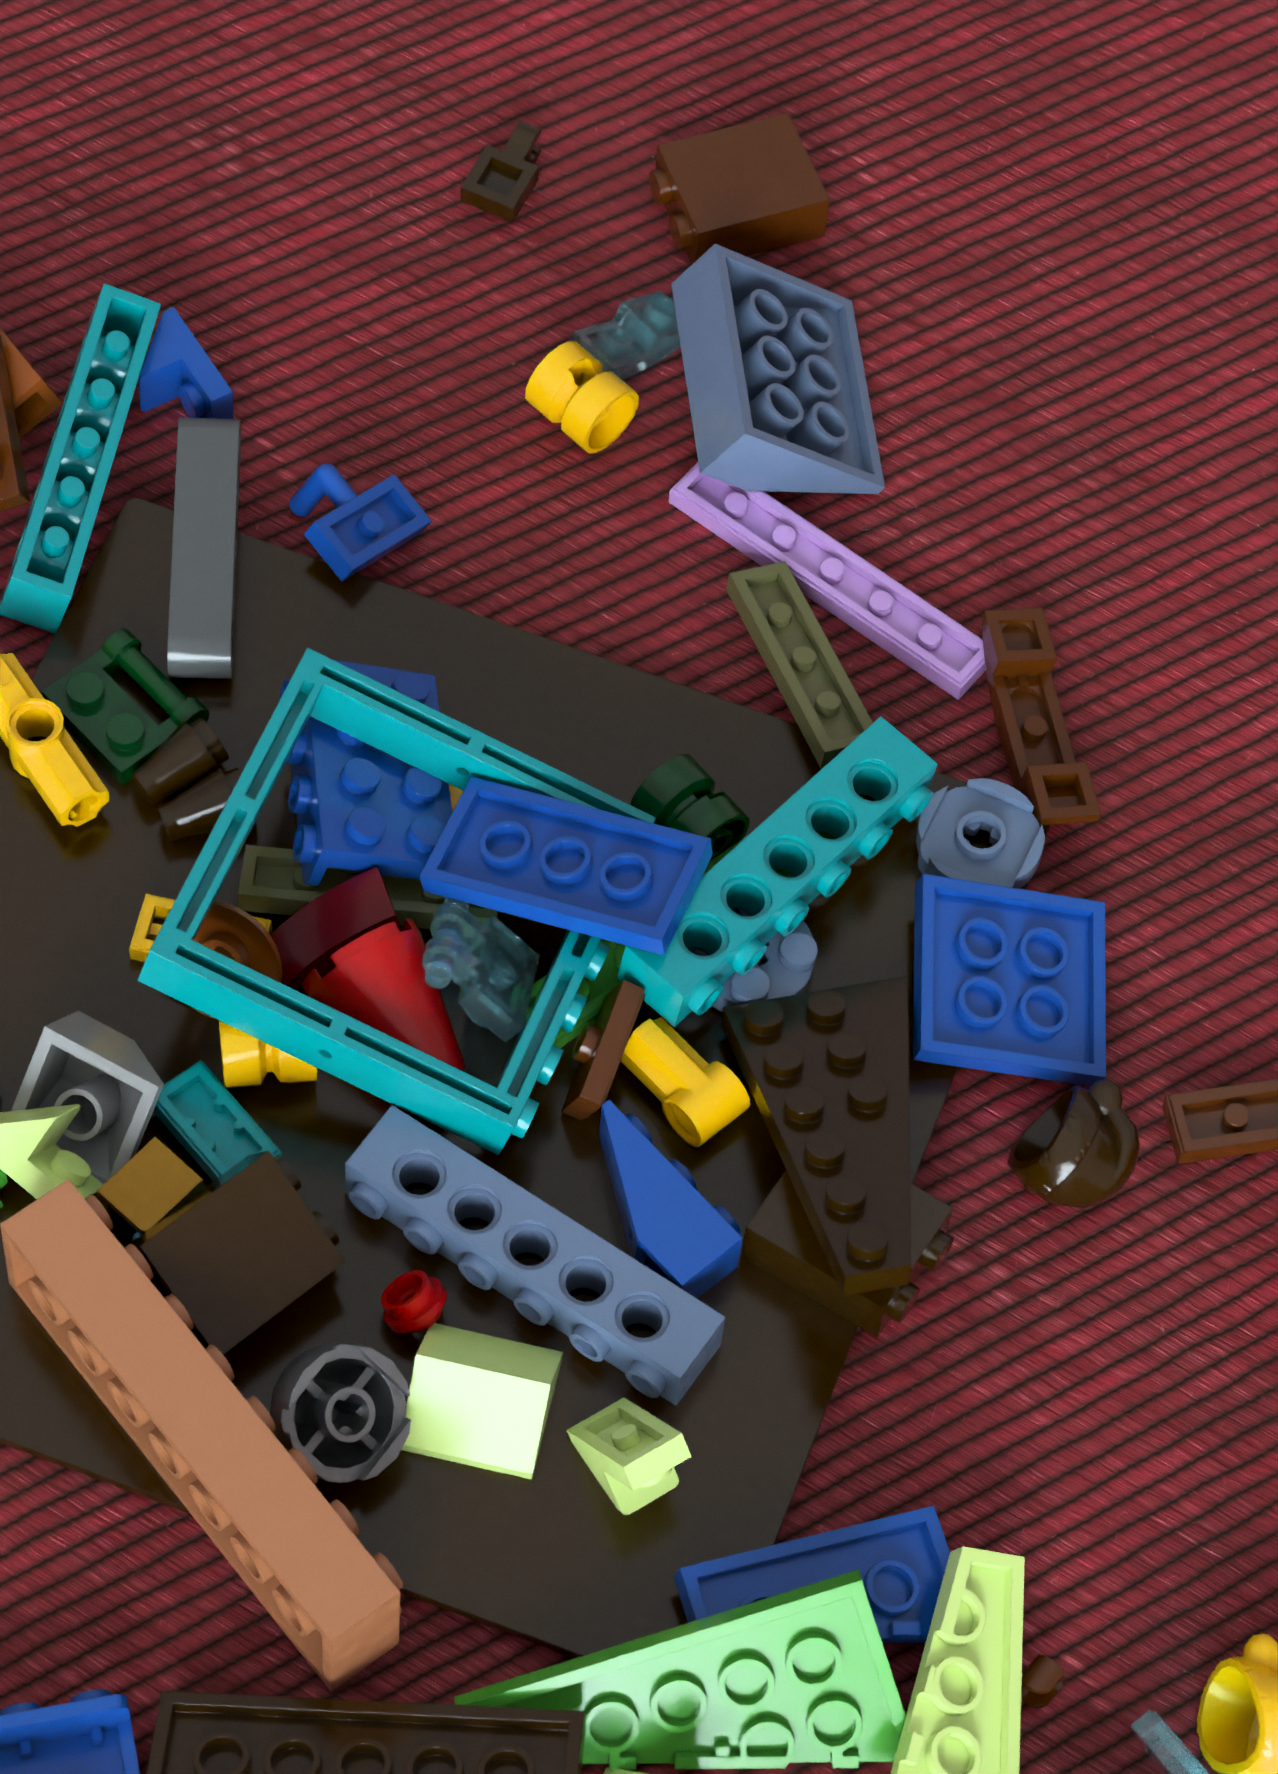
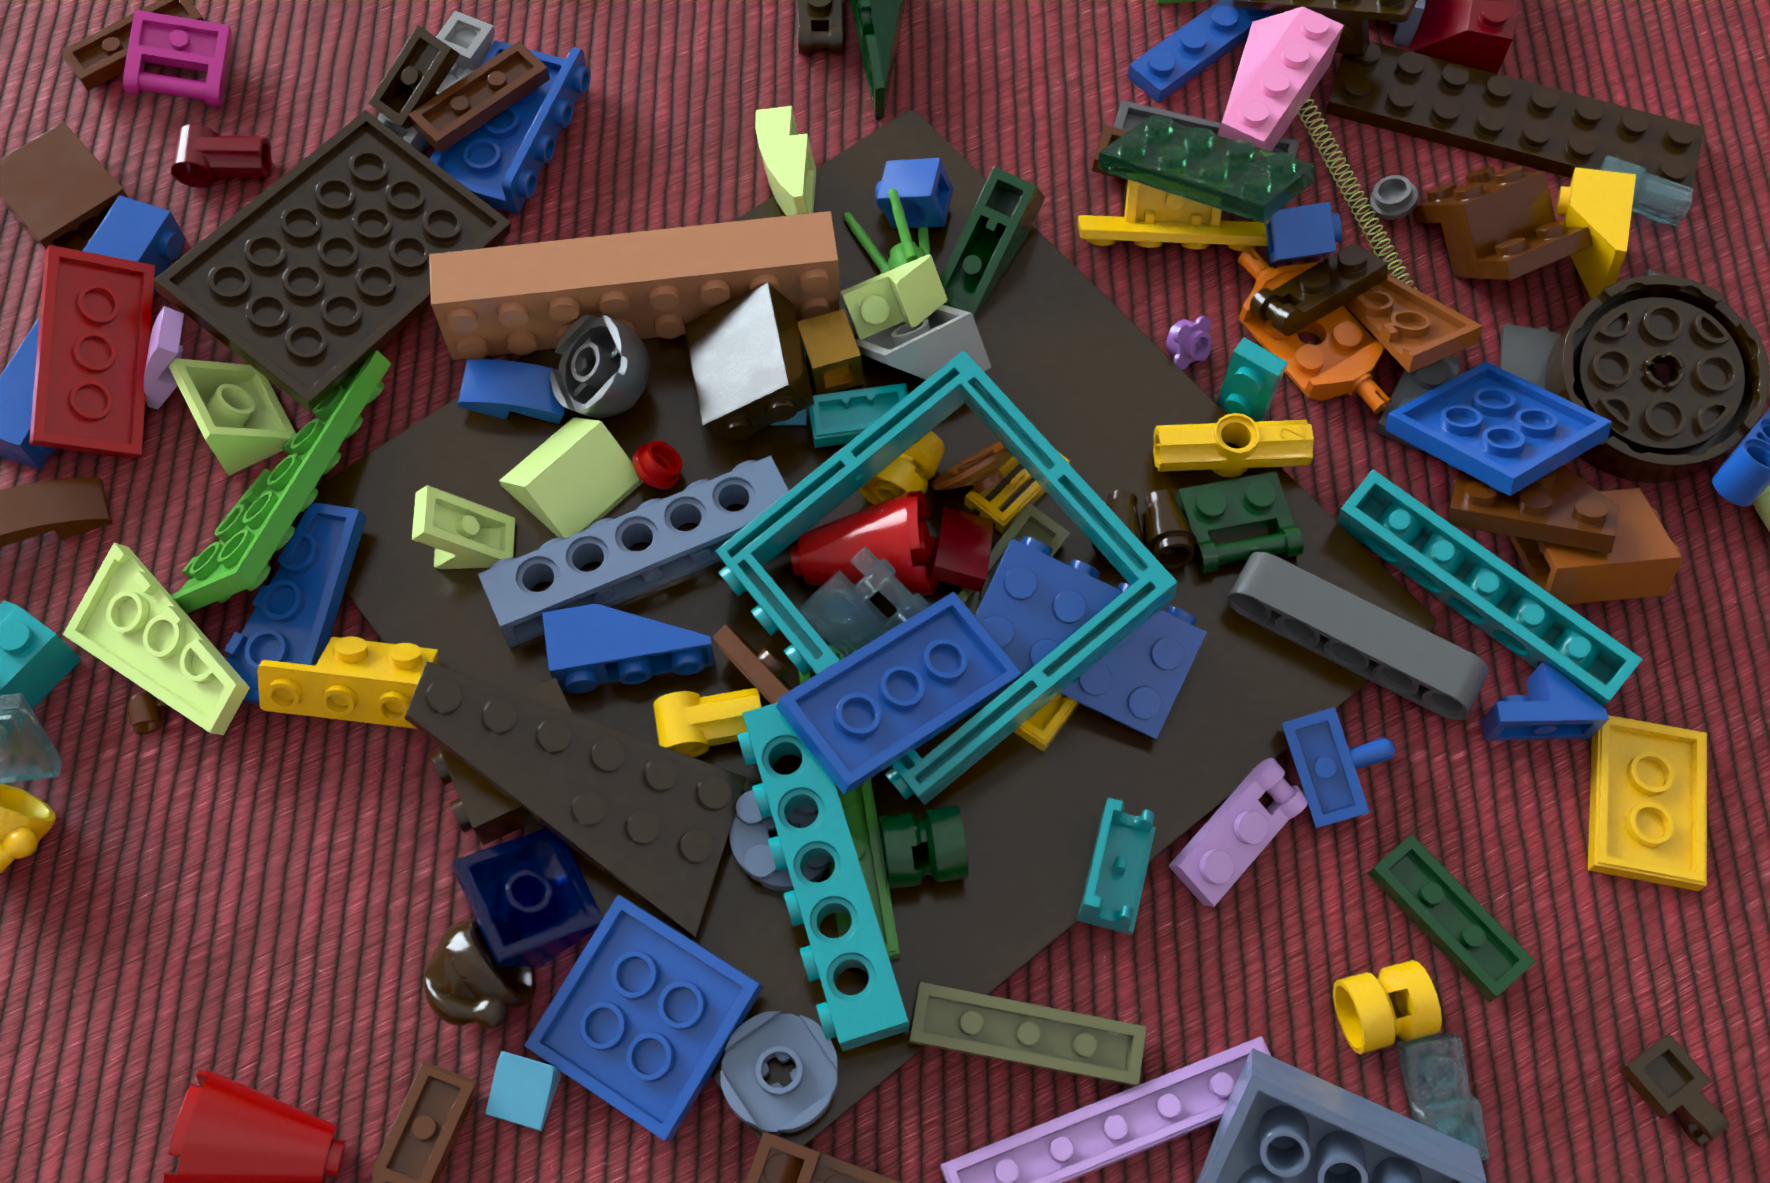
camera: 125 degrees right, 5 degrees up
(225, 270) = (1649, 803): none -> yellow tile
(410, 1526) = (508, 386): none -> blue slope
(453, 385) = (1451, 918): none -> dark green plate
(478, 579) = (1237, 833): none -> lavender plate
(596, 657) = (1117, 868): none -> teal hinge
(855, 1432) = (349, 683): none -> yellow bracket
(976, 1141) = (528, 898): none -> clear blue slope
(1141, 1064) = (522, 1091): none -> medium azure slope

